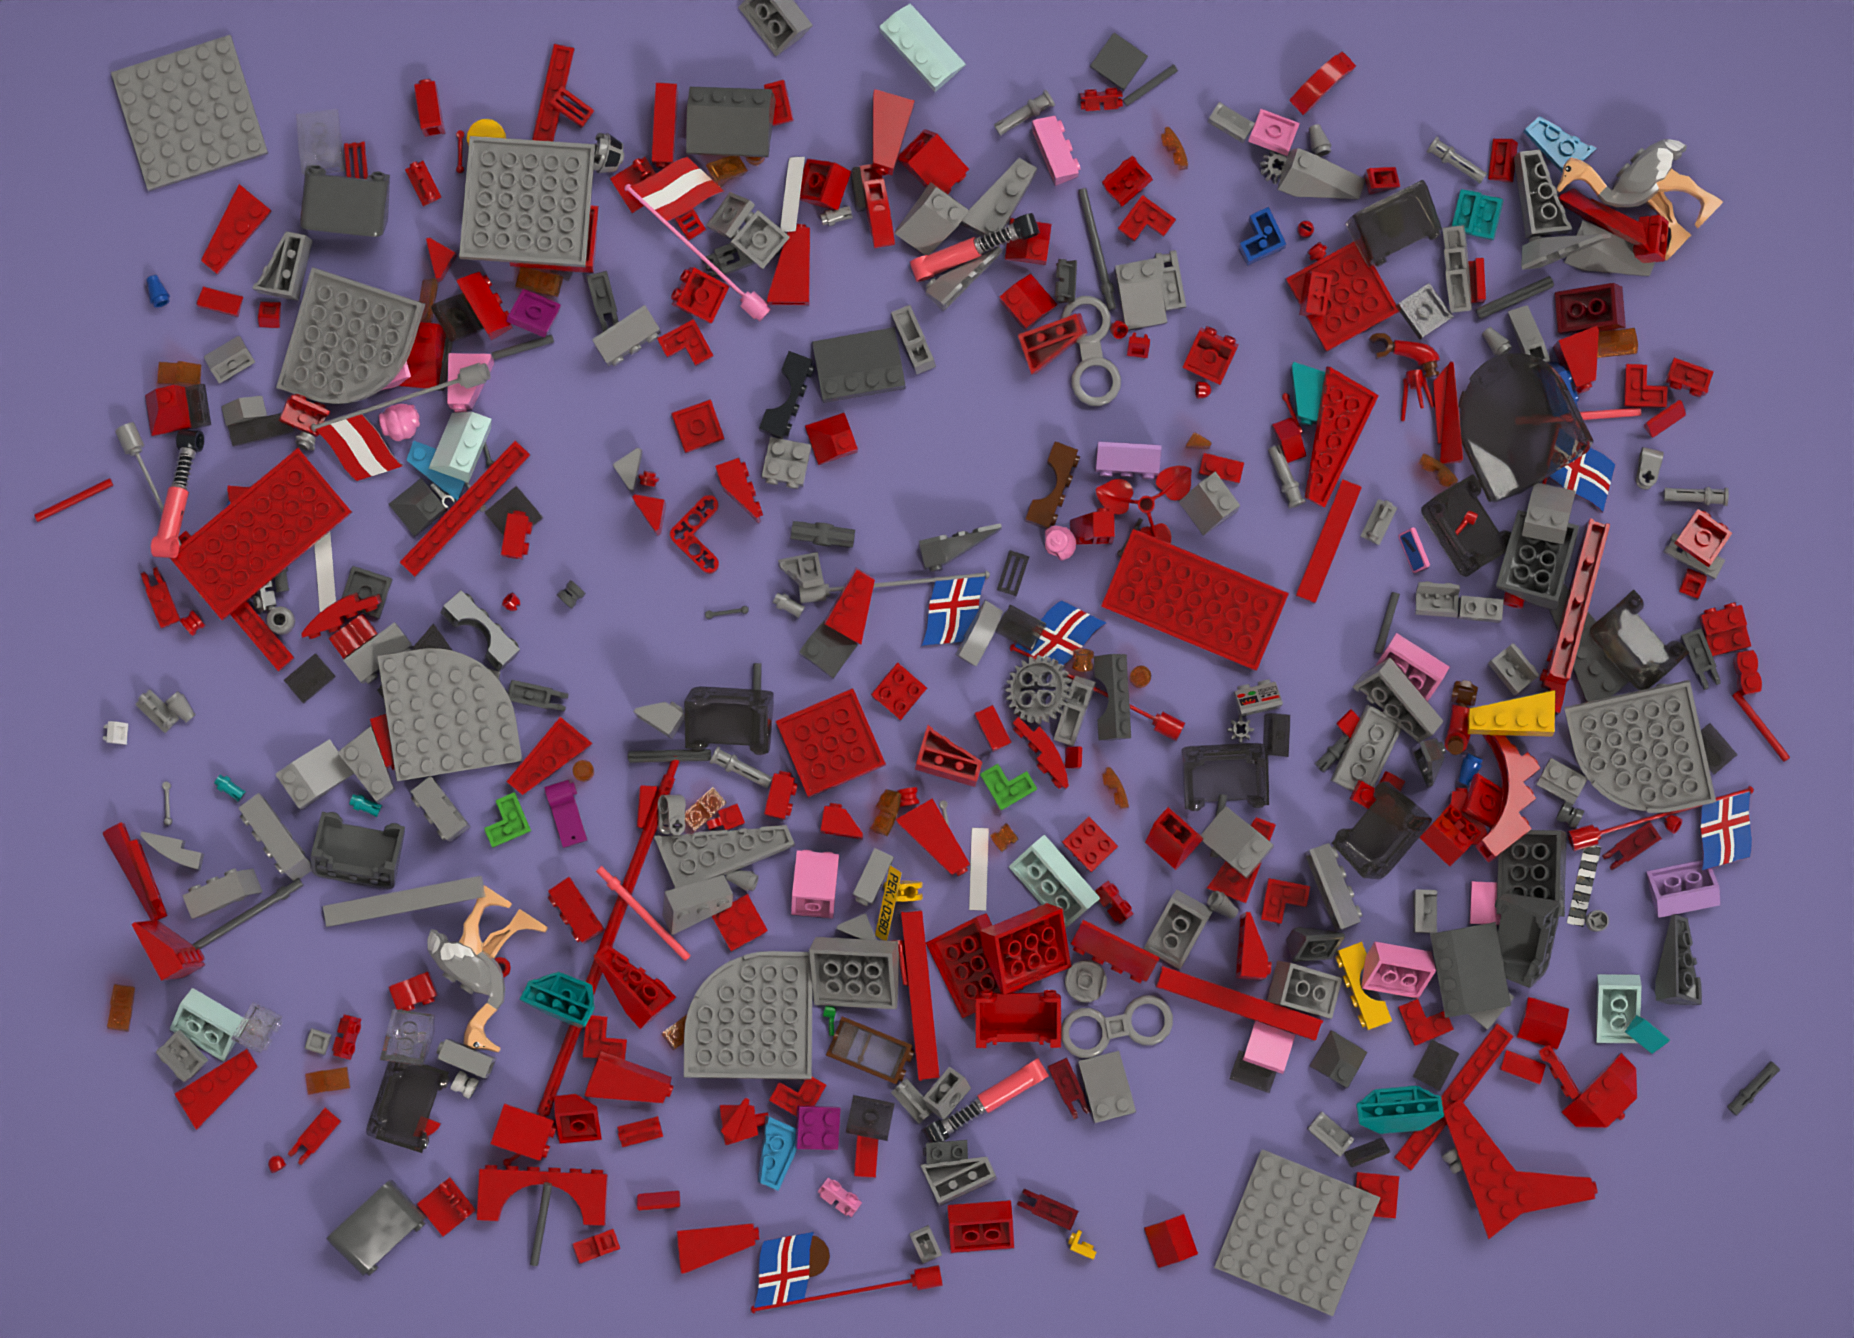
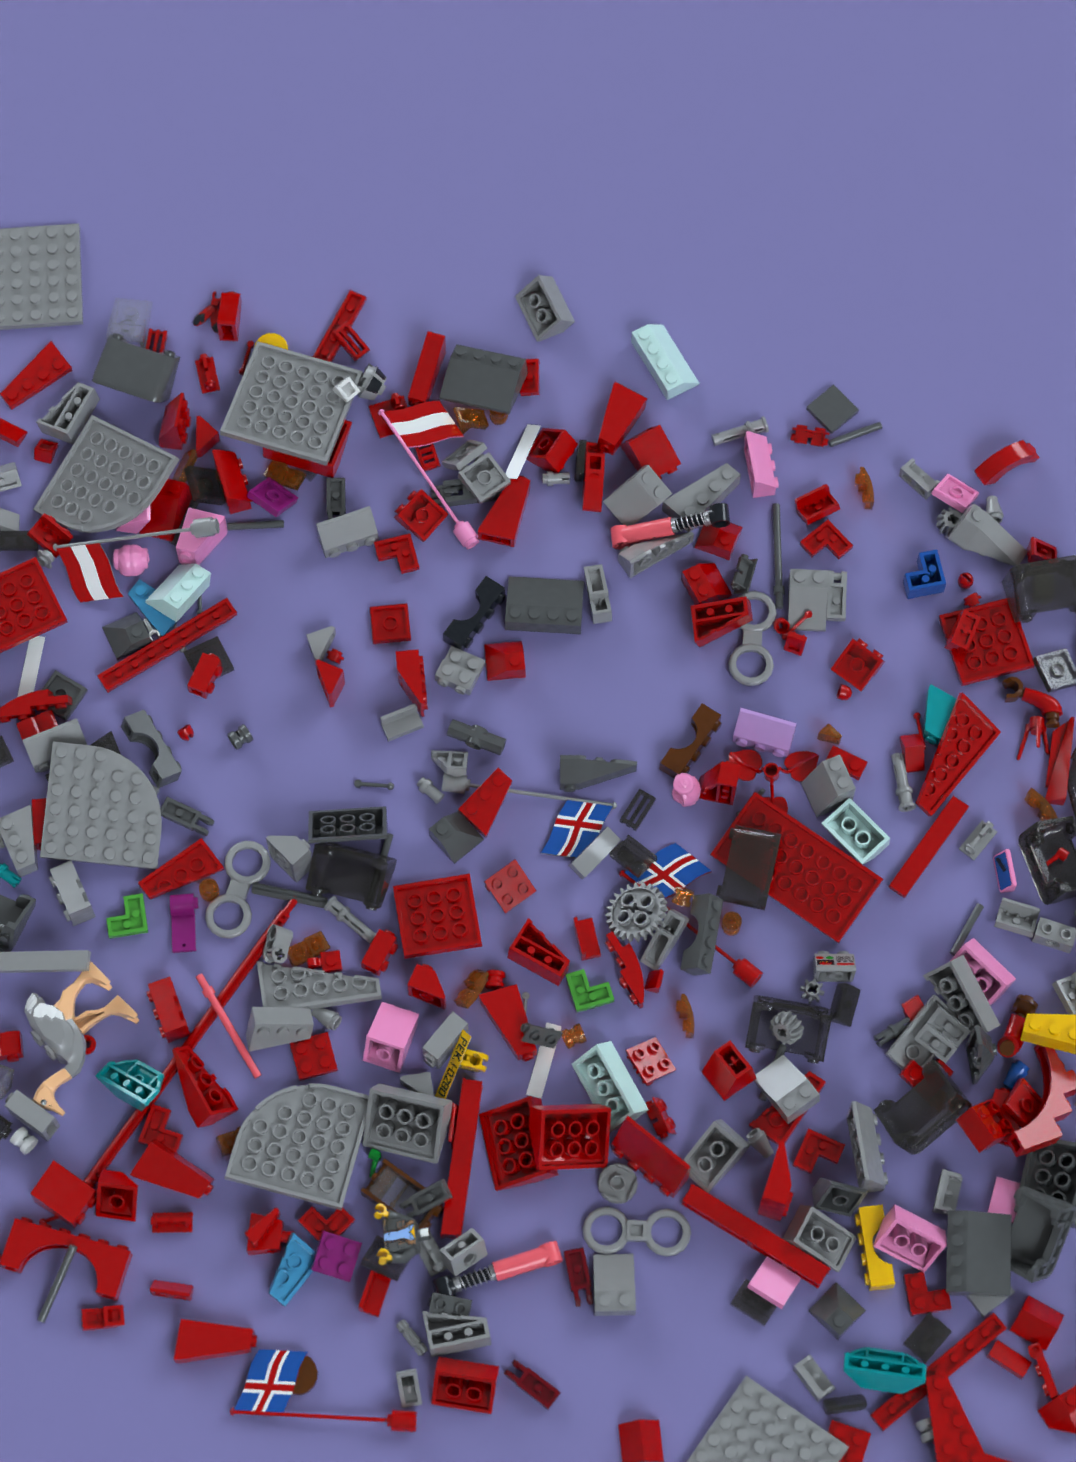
camera: 15 degrees right, 15 degrees down
(403, 254) = (175, 424): none -> red slope
(406, 106) = (209, 312): none -> red piece
(583, 172) = (346, 389): none -> white slope
(613, 762) = (237, 889): none -> light grey bar
(646, 799) = (258, 927): red slope -> none
(691, 539) = (357, 715): red beam -> none
(713, 671) = (347, 824): none -> dark grey slope
(739, 537) = (401, 722): none -> light grey panel
(832, 1191) = (335, 1319): bright pink hinge -> none
(880, 1096) = (400, 1236): none -> torso
(897, 1049) = (427, 1198): none -> dark grey hinge
(914, 1190) = (411, 1337): none -> light grey axle
(971, 848) = (540, 1035): none -> dark grey hinge
(1018, 1018) = (546, 1196): red windscreen -> none
(1084, 1249) = (556, 1429): yellow bracket -> none
(1145, 311) = (808, 614): none -> red hinge
(1147, 613) = (749, 867): none -> clear smoke windscreen
(1223, 778) = (786, 1027): none -> light grey gear
(1249, 547) = (856, 832): none -> light aqua slope
(1385, 746) = (942, 1034): none -> light grey slope

